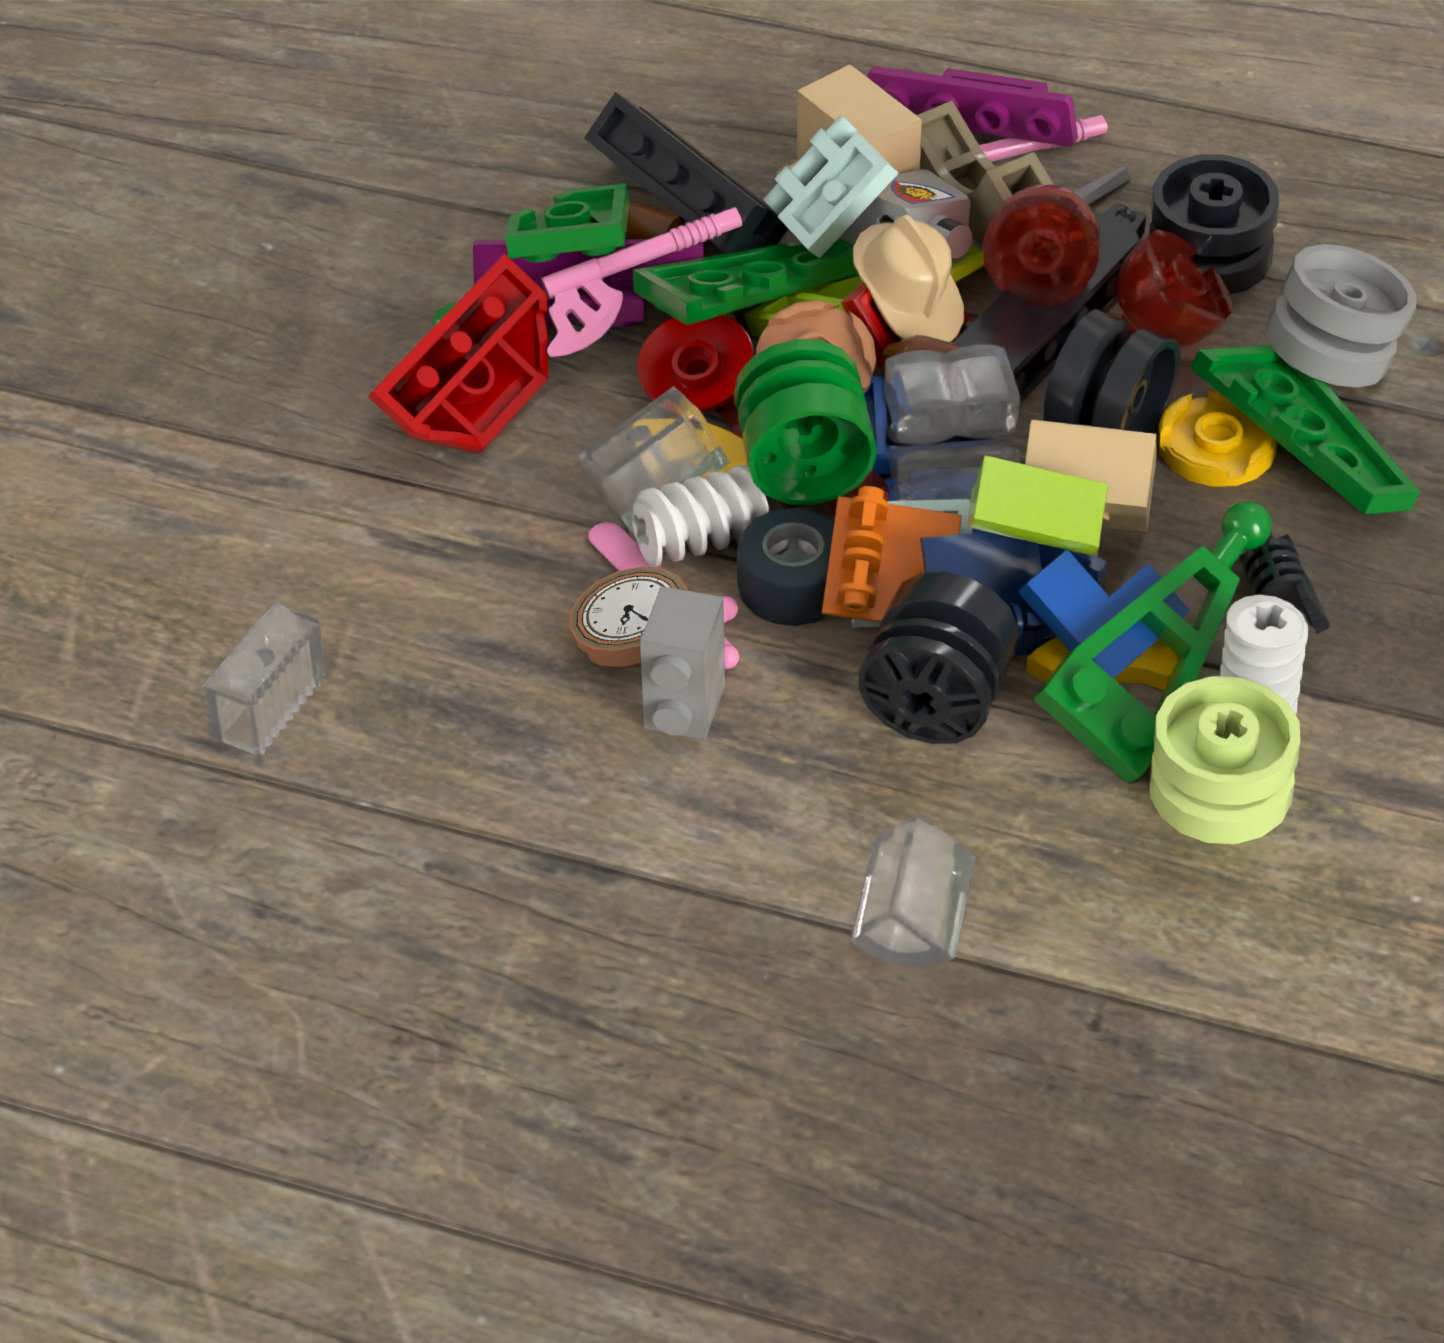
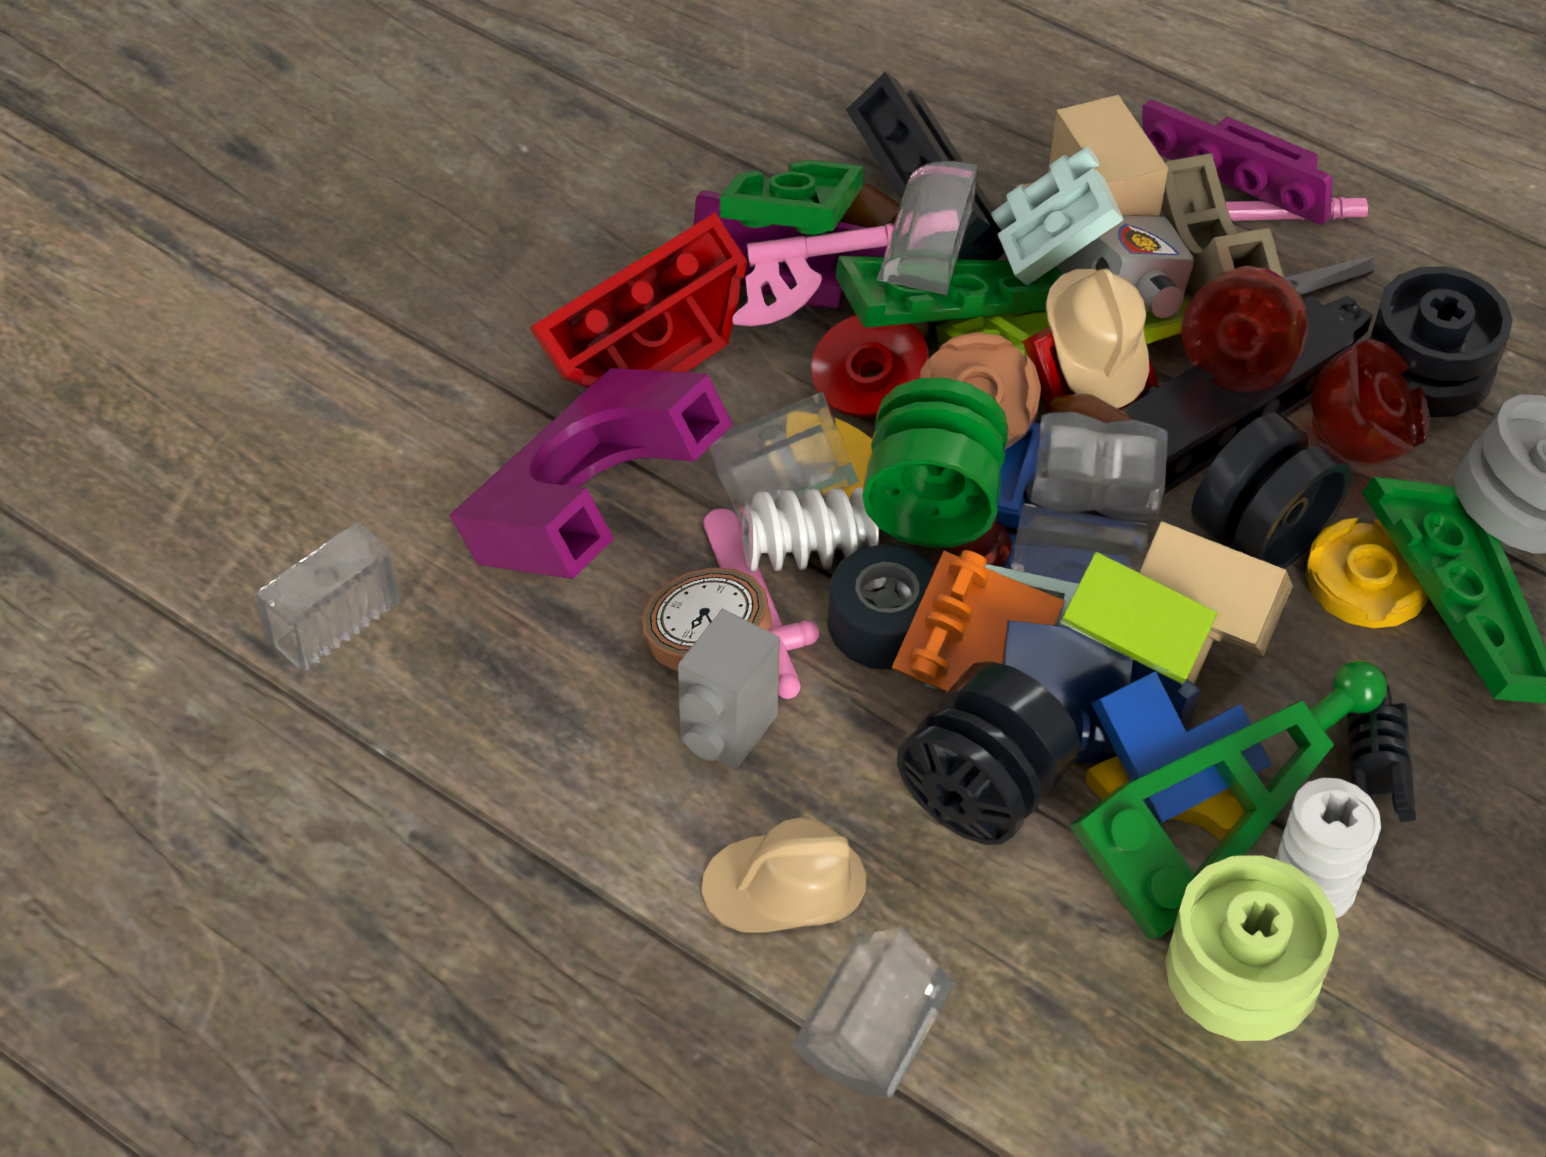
camera: 15 degrees right, 5 degrees up
(432, 550) = (532, 508): none -> magenta arch
(717, 219) = (930, 226): none -> clear brick
(789, 813) = (785, 879): none -> tan piece

